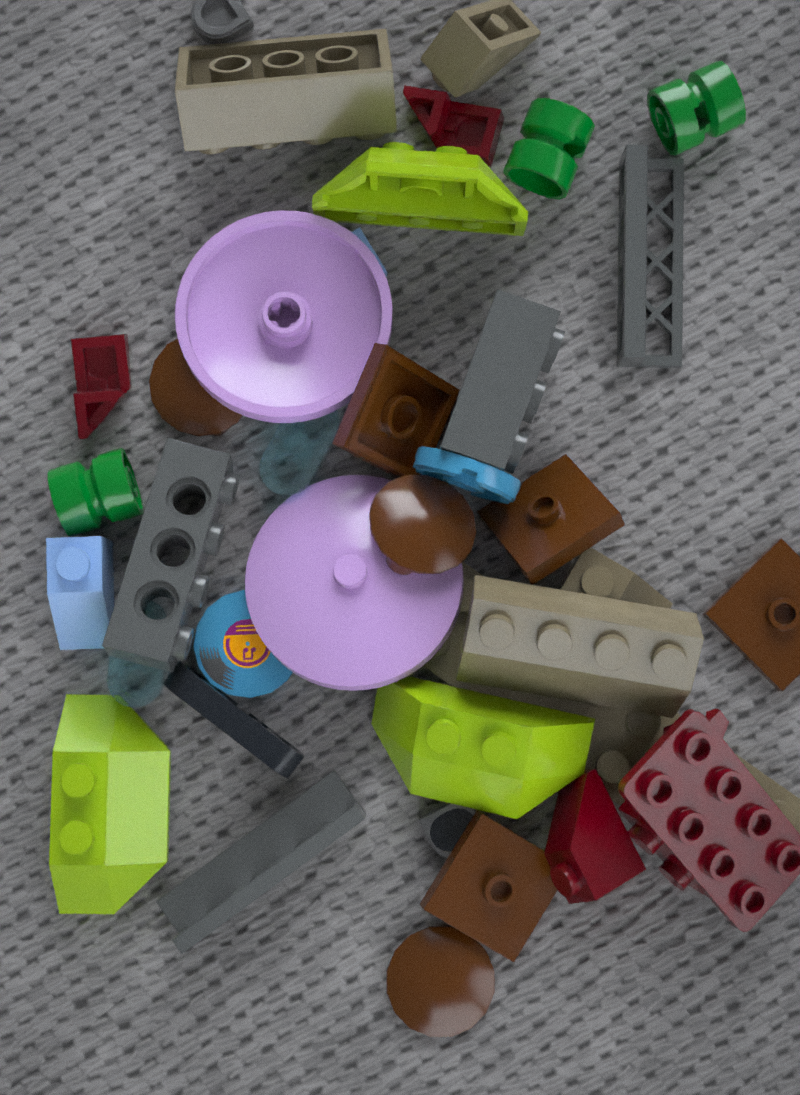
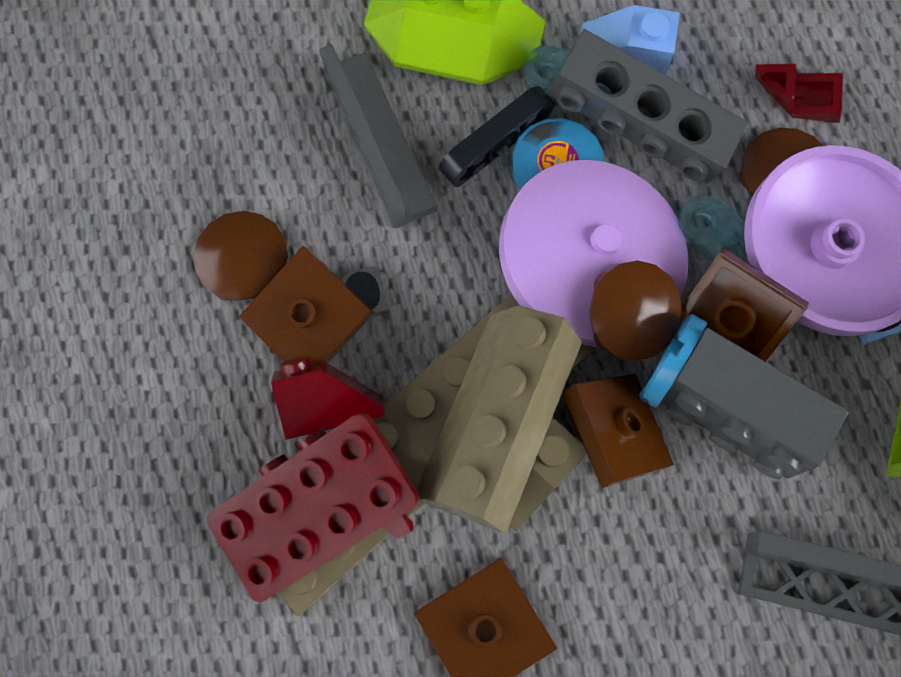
camera: 105 degrees right, 10 degrees down
(87, 495) = (709, 61): green wheel -> none
(479, 746) = (428, 327): lime wedge -> none

